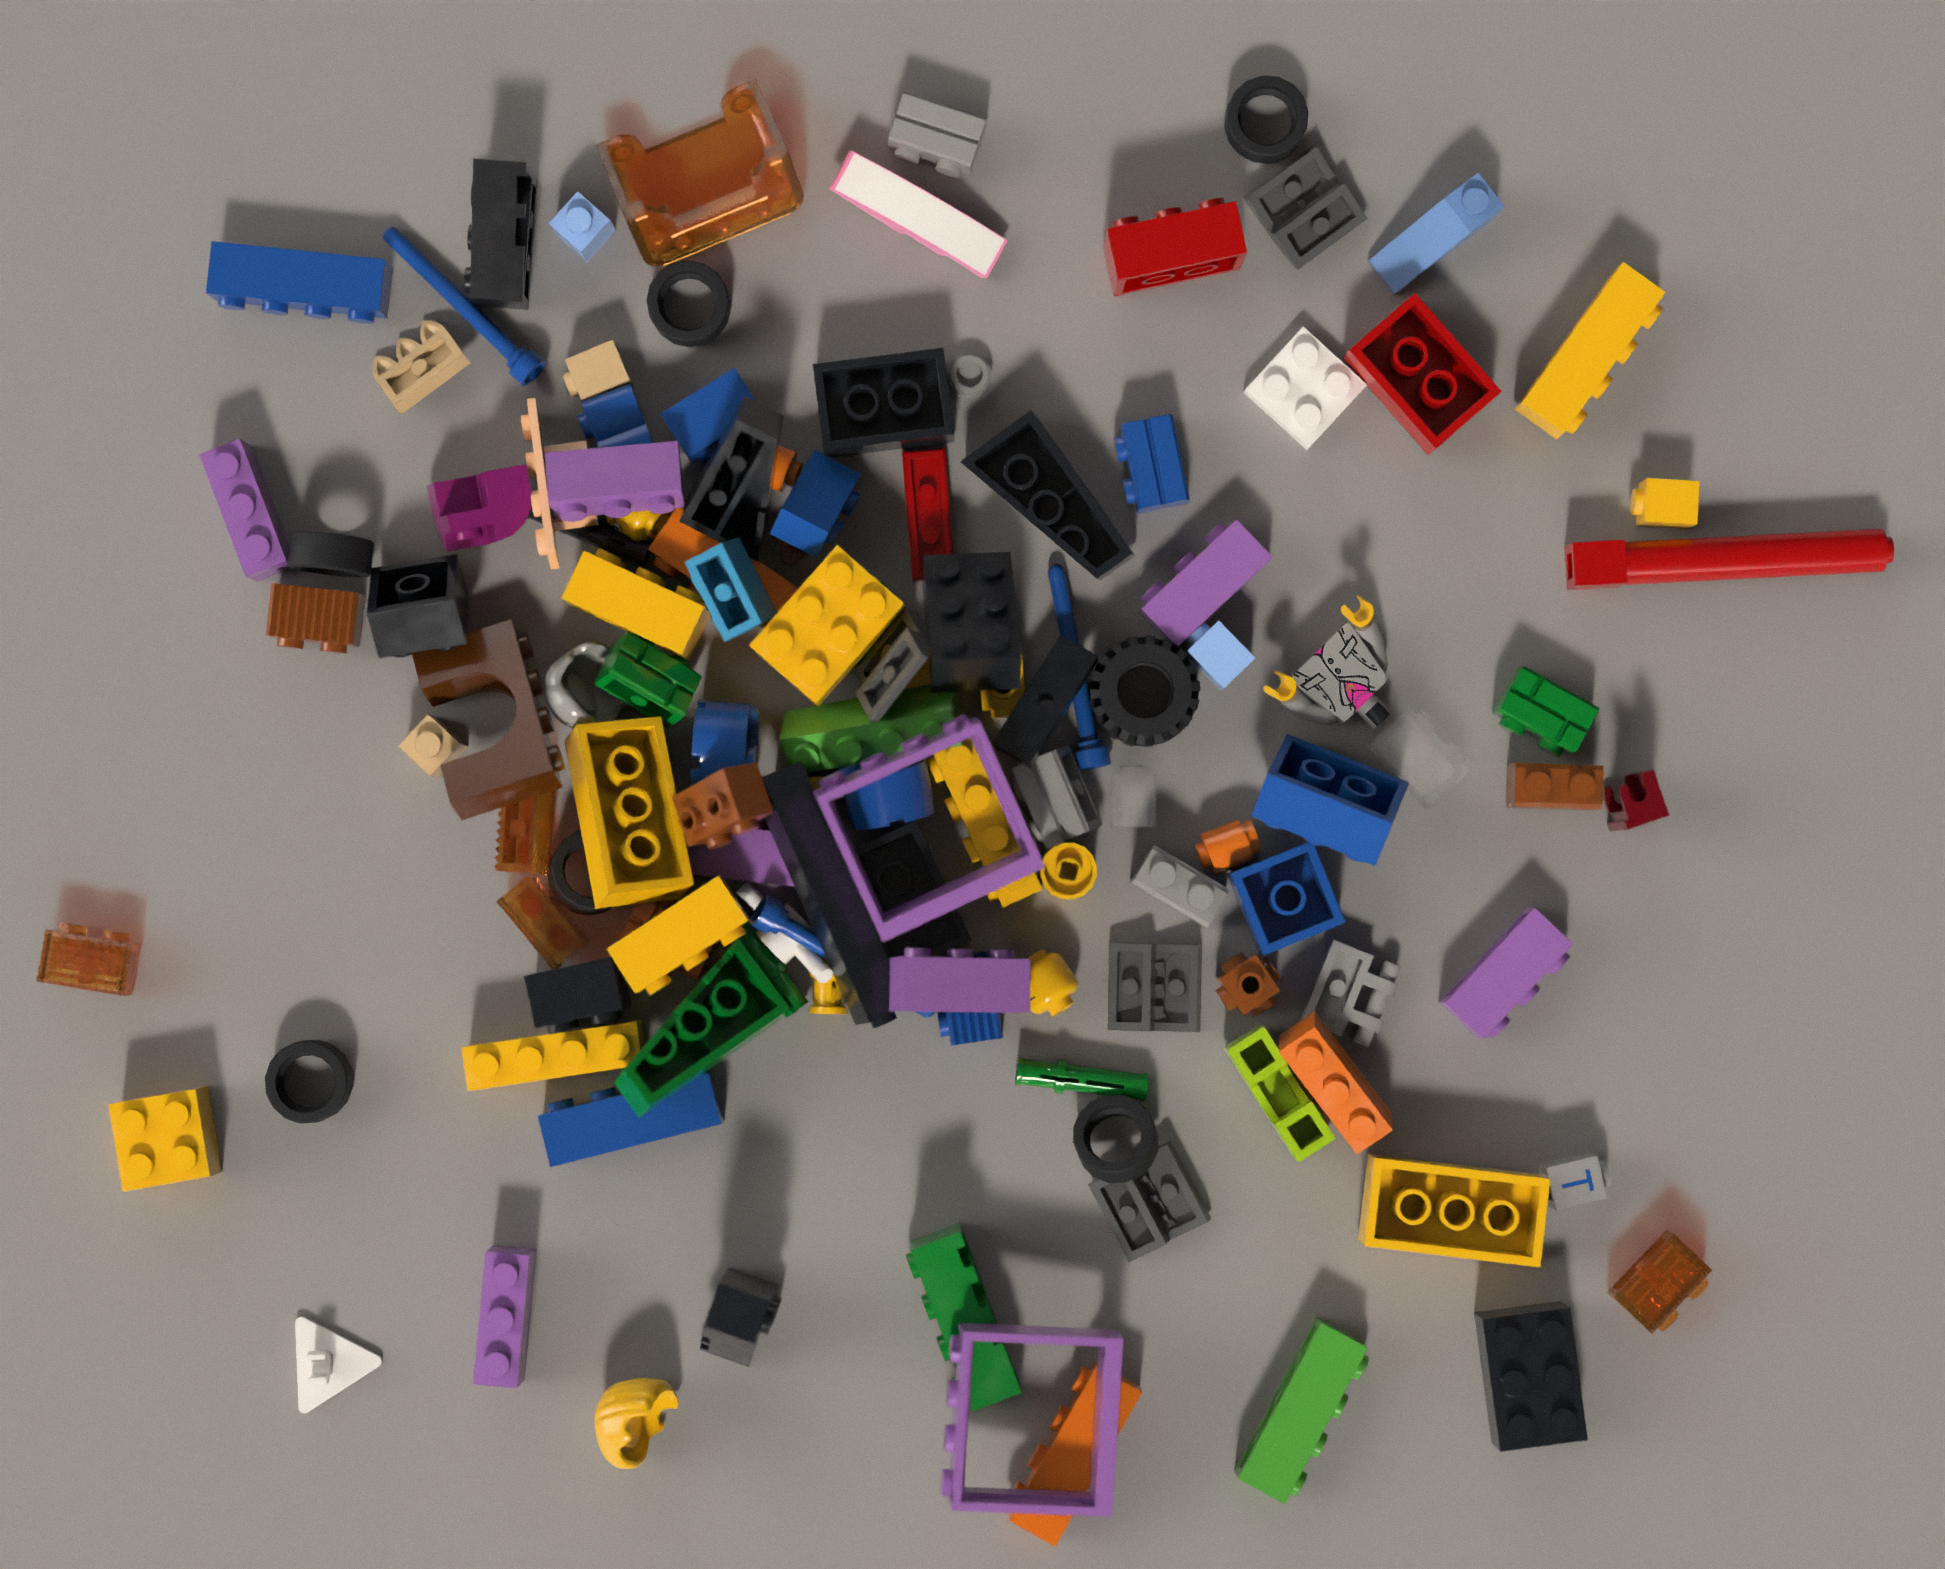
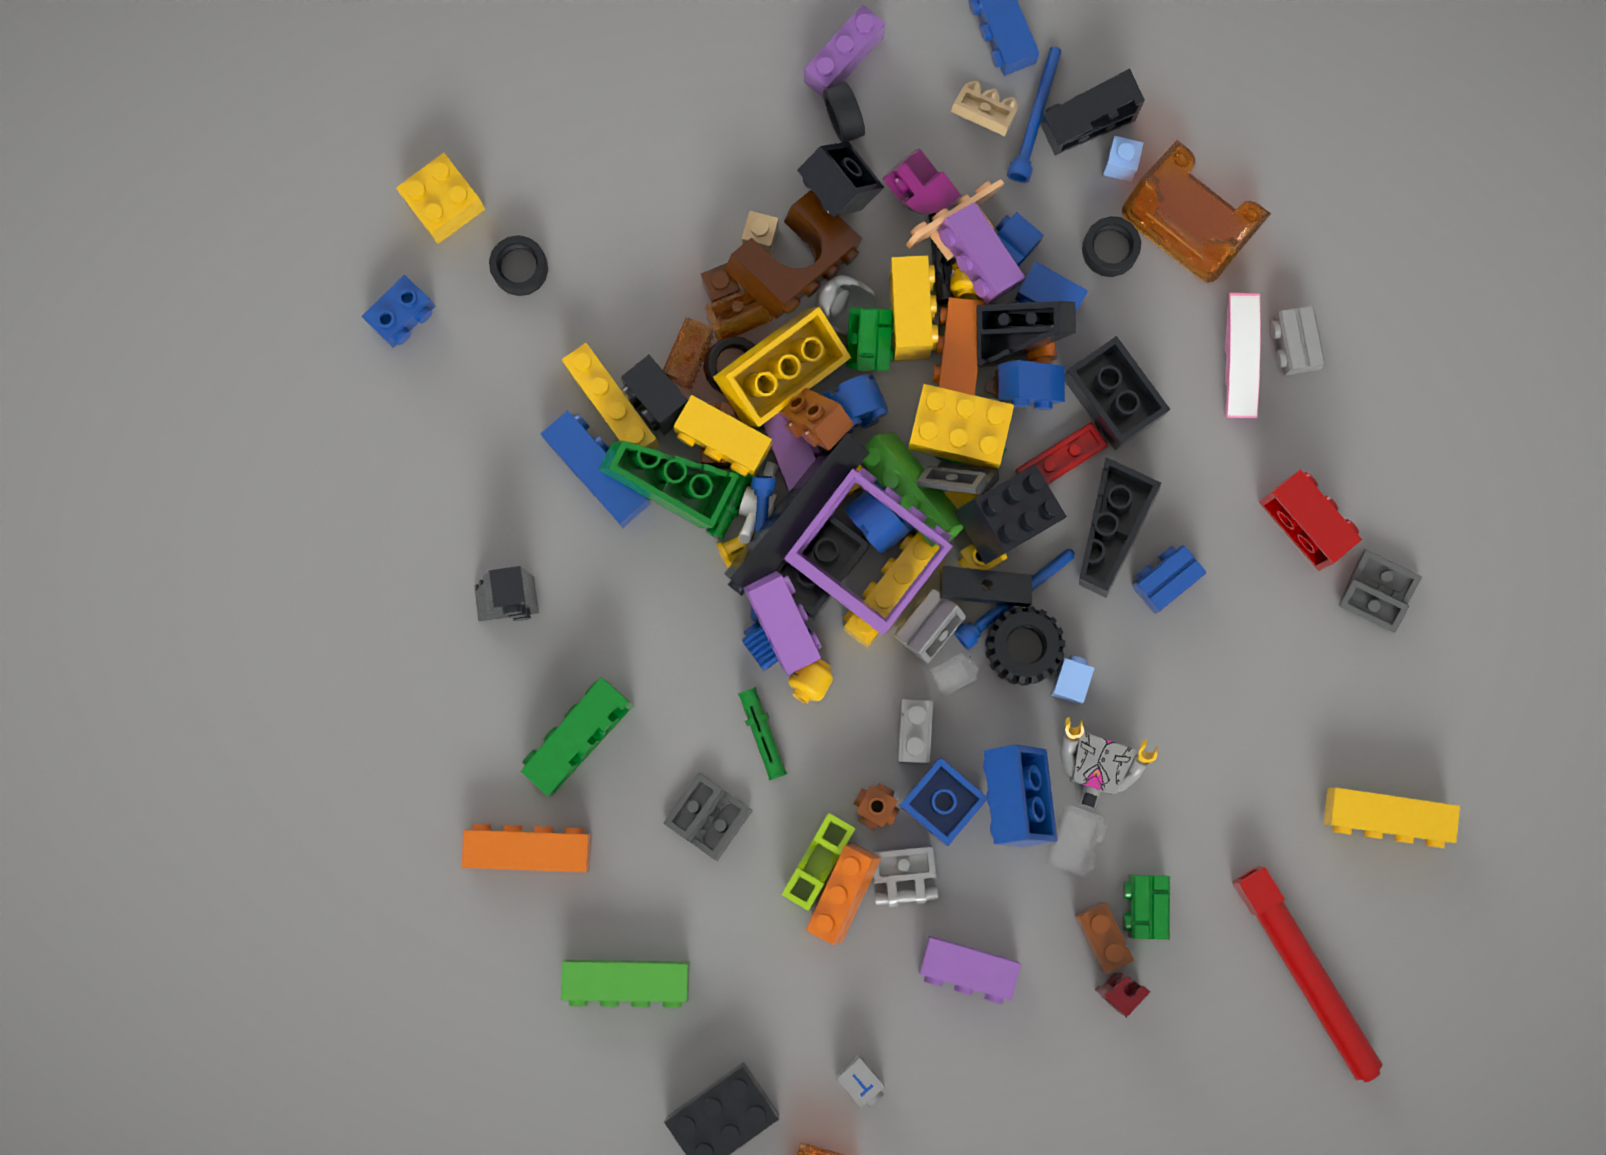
camera: 70 degrees right, 5 degrees down
(89, 961) = (524, 101): clear orange brick -> none
(289, 1268) = (399, 311): none -> blue brick
(315, 616) = (801, 124): dark orange brick -> none
(327, 1363) = (353, 365): white piece -> none
(475, 834) = (719, 283): none -> reddish brown brick
(504, 1316) = (434, 455): medium lavender brick -> none
(596, 371) = (1040, 212): tan brick -> none
(629, 1418) = (410, 563): yellow piece -> none
(731, 589) = (952, 356): dark azure brick -> none
(969, 375) = (1160, 438): light grey tile -> none
(1068, 871) = (887, 656): yellow wheel -> none
(1105, 1108) = (750, 757): black tyre -> none
(1105, 1427) = (482, 835): medium lavender window -> none
(1154, 987) = (843, 750): dark grey slope -> none
(1204, 582) = (1113, 648): medium lavender brick -> none
(1228, 846) = (956, 749): orange brick -> none
(1266, 86) = (1442, 527): black tyre -> none
(1305, 388) = (1267, 649): white plate -> none
(1421, 374) = (1317, 716): red brick -> none
(1437, 233) = (1411, 681): medium blue slope -> none
(1454, 1210) = (802, 1013): yellow brick -> none
(1666, 503) = (1321, 915): yellow brick -> none

